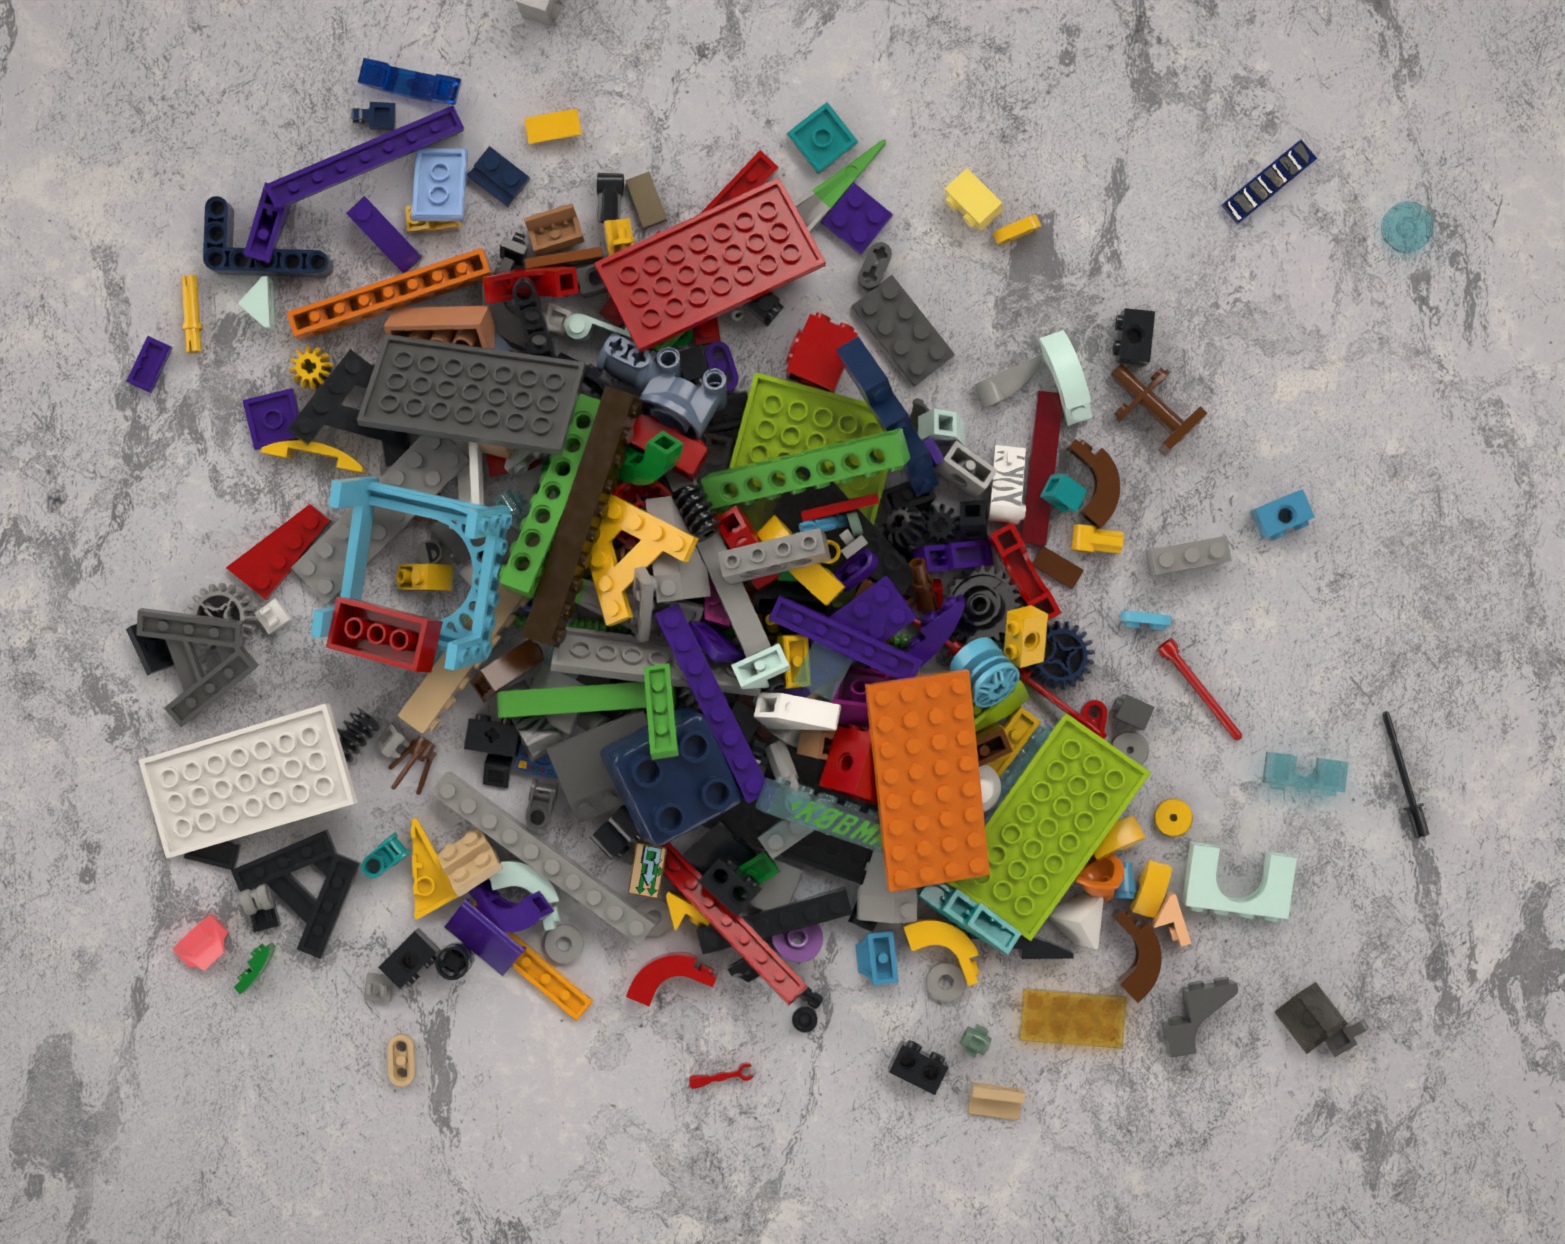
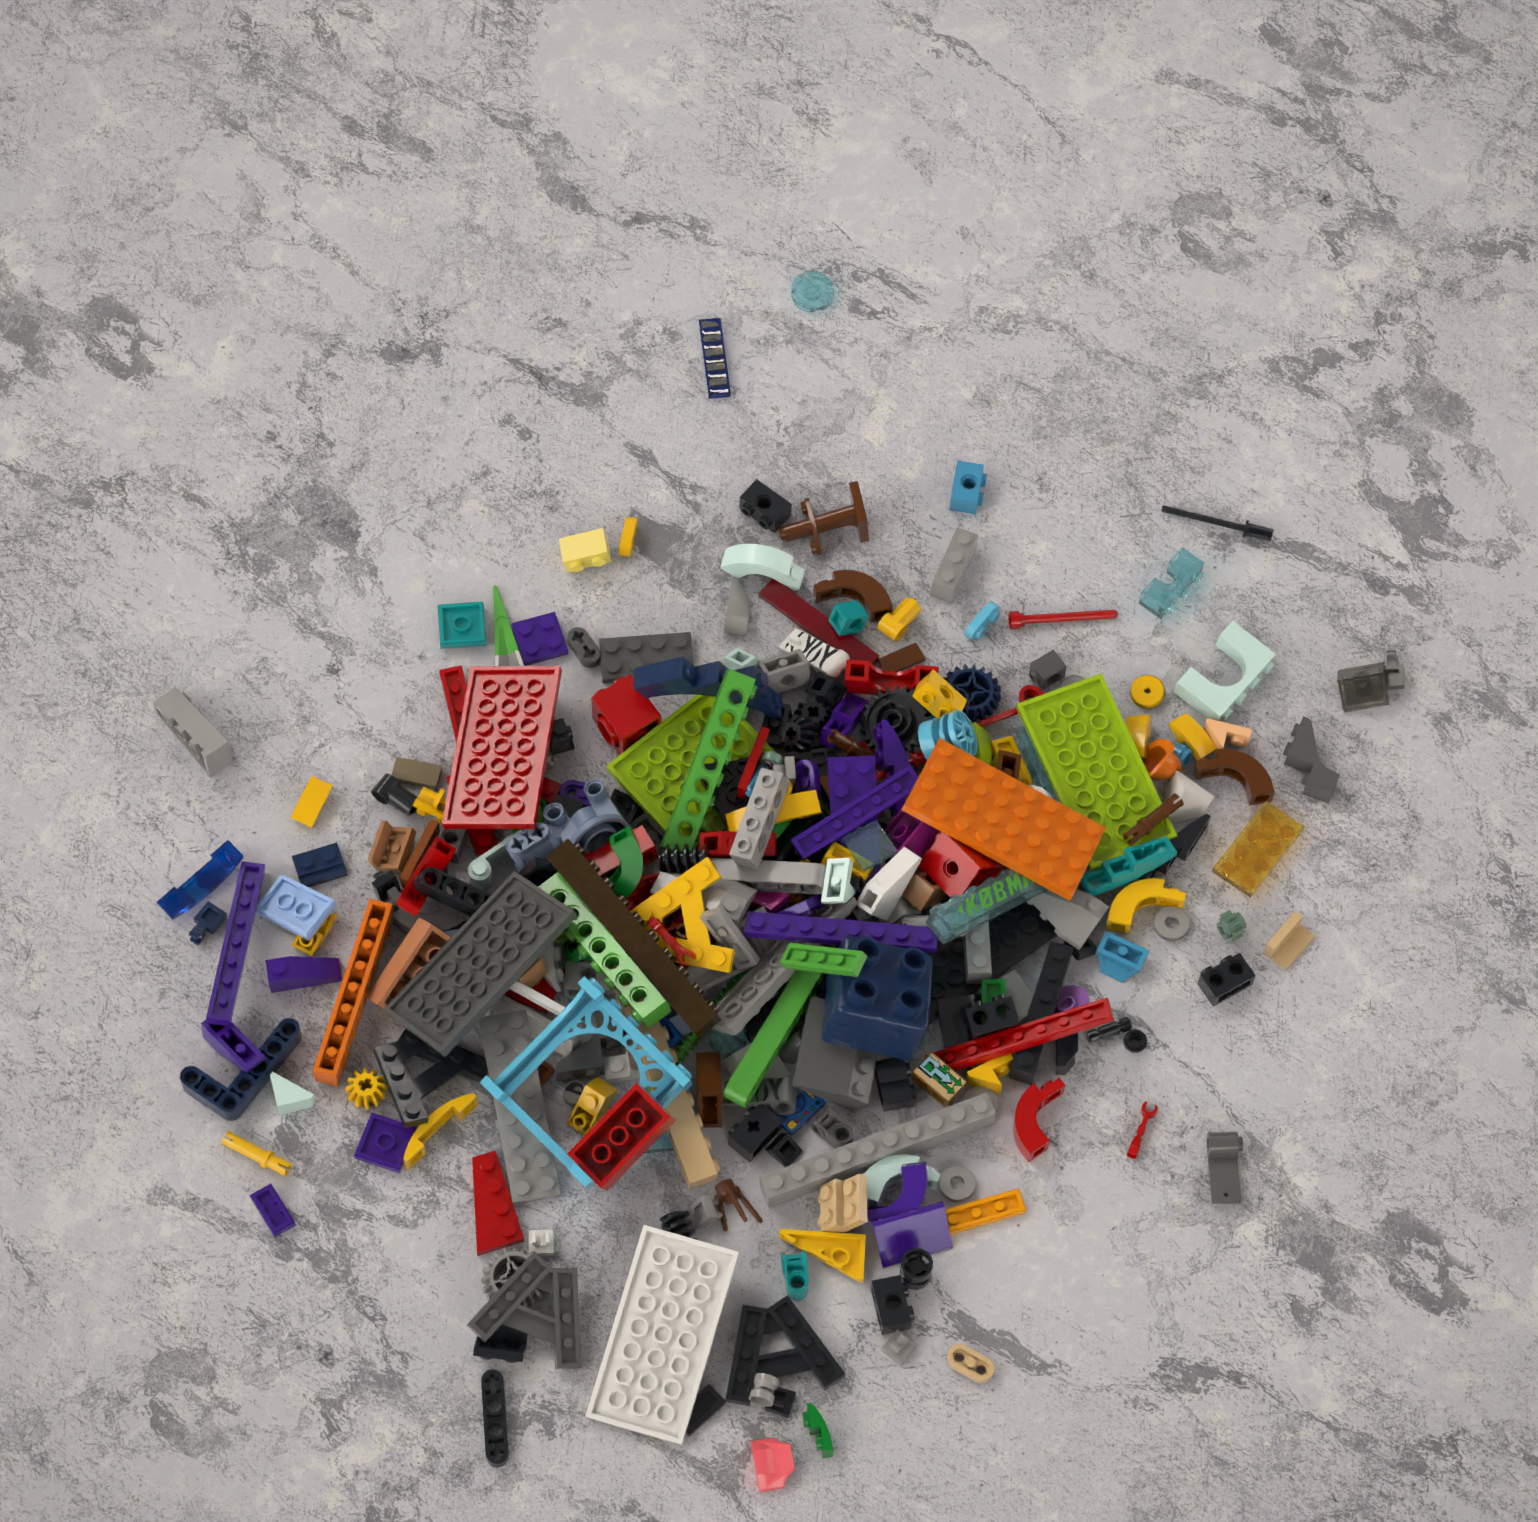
camera: 60 degrees left, 25 degrees down
(89, 679) = (491, 1418): none -> black beam
(607, 532) = (657, 926): none -> red piece
(731, 1171) = (1223, 1166): none -> dark grey door
(1017, 908) = (1145, 825): none -> reddish brown pin

